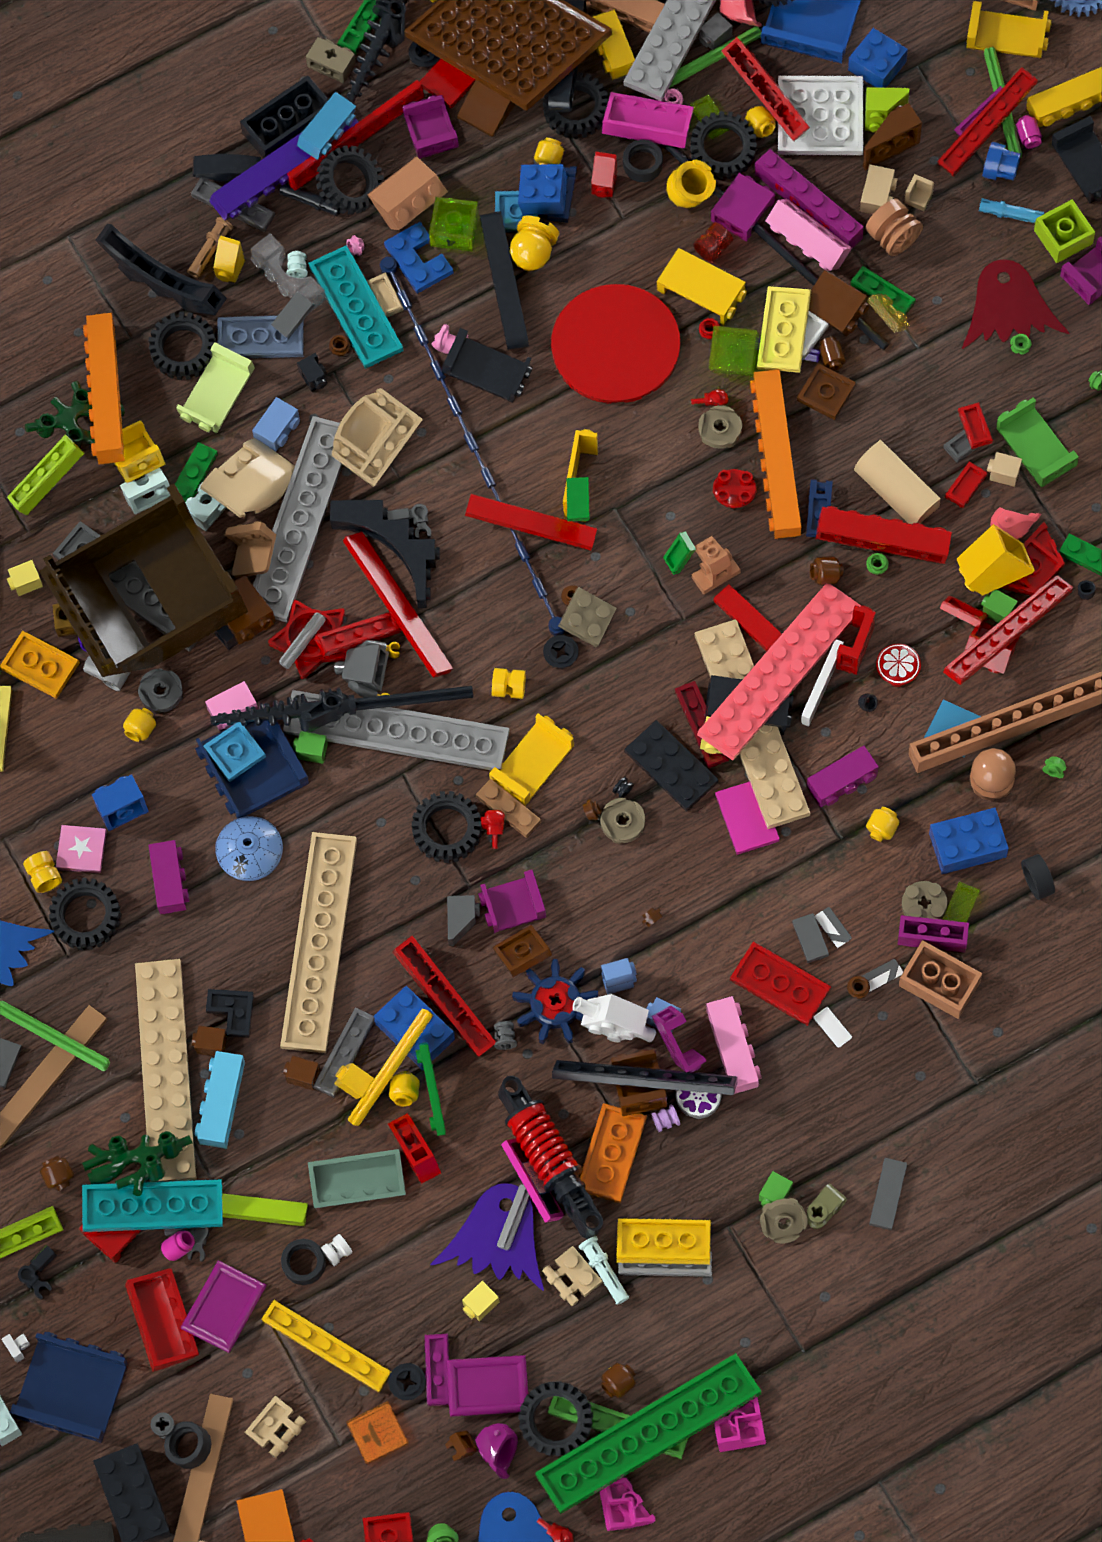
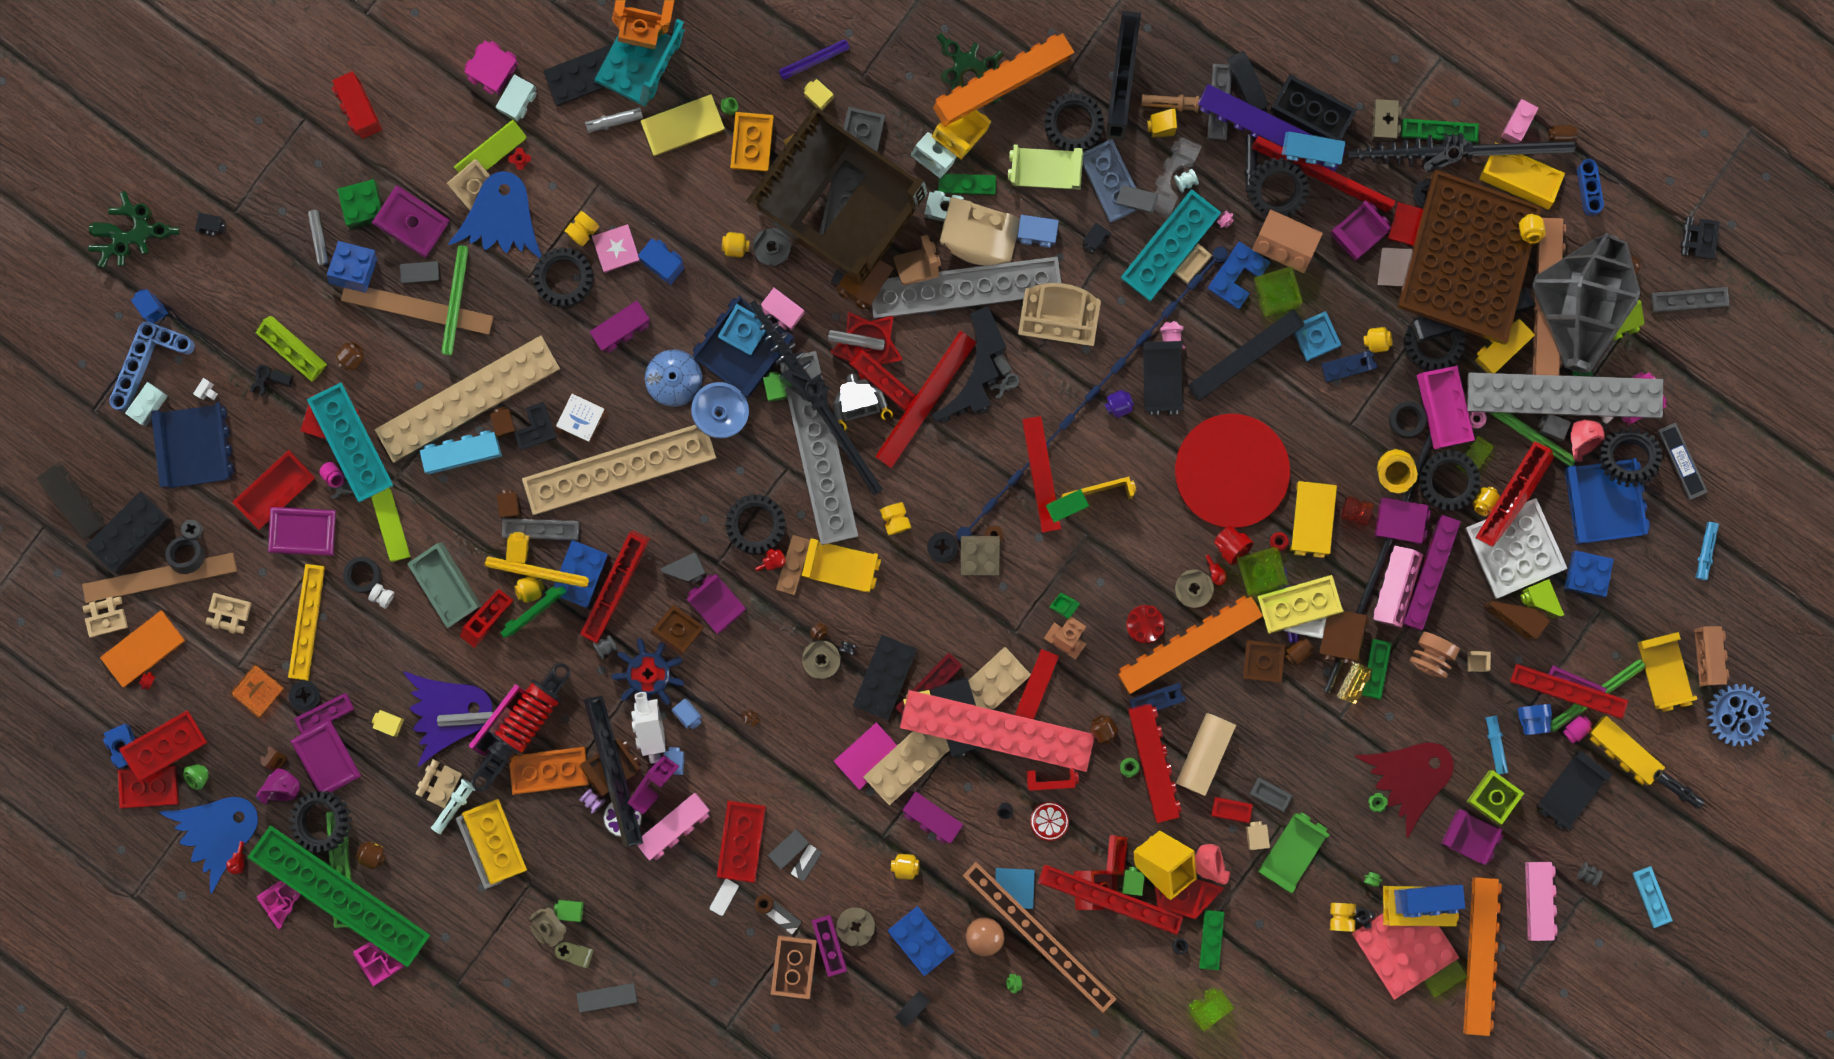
camera: 65 degrees right, 15 degrees up
(45, 475) = (909, 68): lime slope -> none
(121, 1156) = (381, 400): dark green plant -> none
(244, 960) = (580, 417): none -> white tile
(307, 800) = (724, 399): none -> medium blue dish
(337, 340) = (1131, 242): reddish brown plate -> none
(494, 418) = (1119, 403): none -> dark purple head
(532, 245) = (1284, 365): yellow tile -> none
(542, 189) = (1339, 350): blue brick -> none
(604, 174) = (1376, 395): slope -> none
(692, 369) = (1233, 544): none -> red piece
(820, 685) = (1004, 767): white tile -> none
(877, 188) = (1466, 626): tan brick -> none
(961, 903) = (866, 956): clear neon green tile -> none
(975, 425) = (1285, 796): red tile -> none

